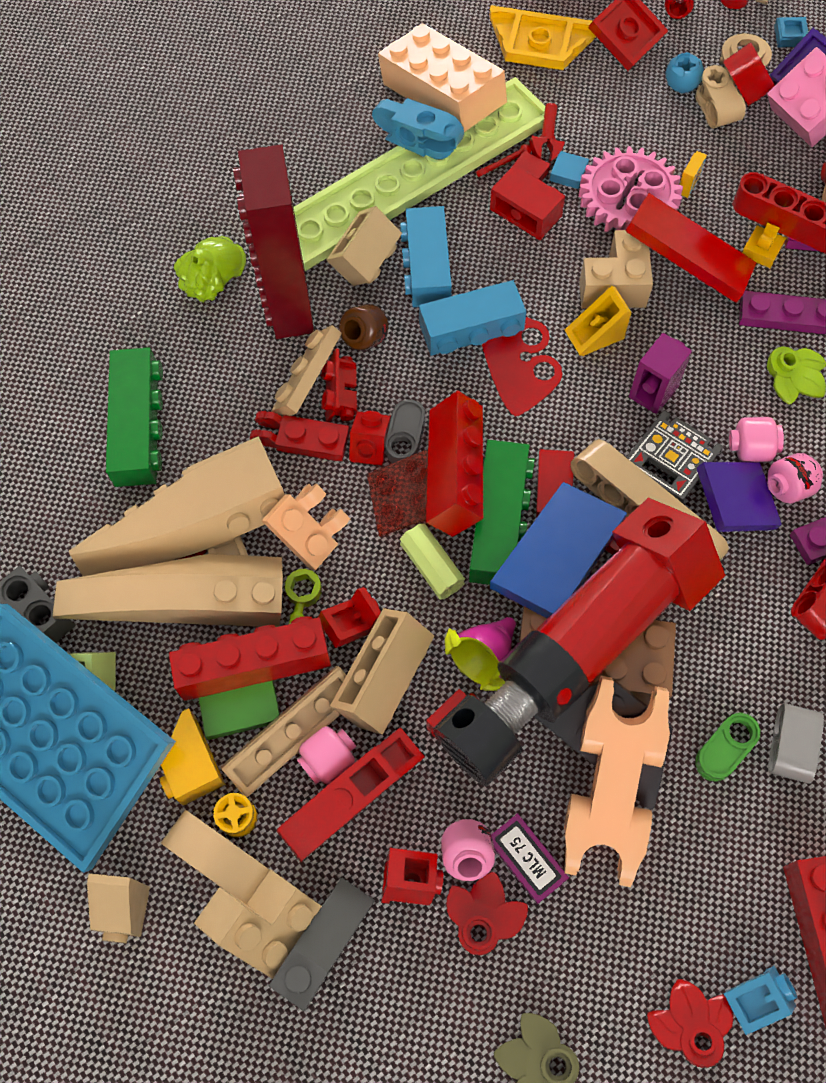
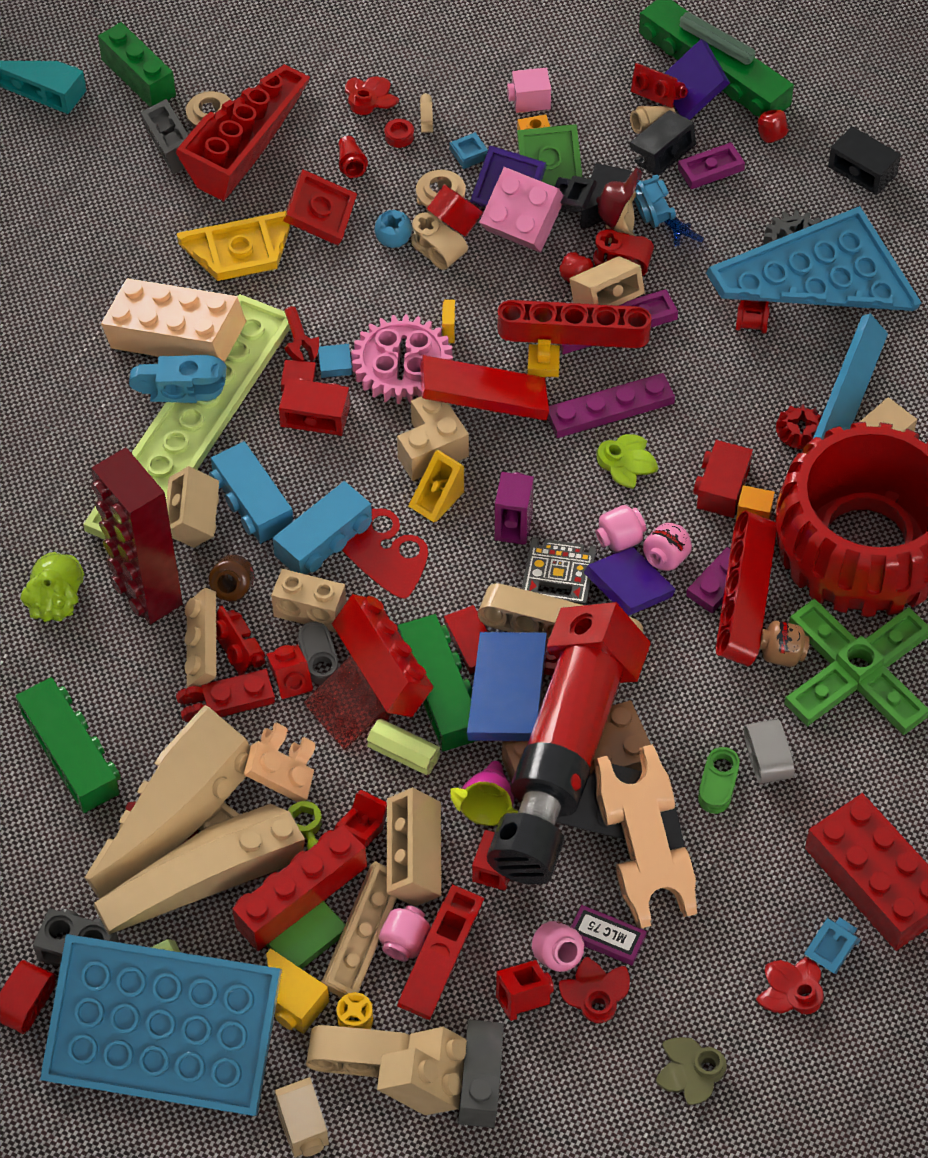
camera: 30 degrees left, 10 degrees down
(420, 375) = (307, 598): none -> tan brick
(525, 147) = (257, 392): red hinge -> none

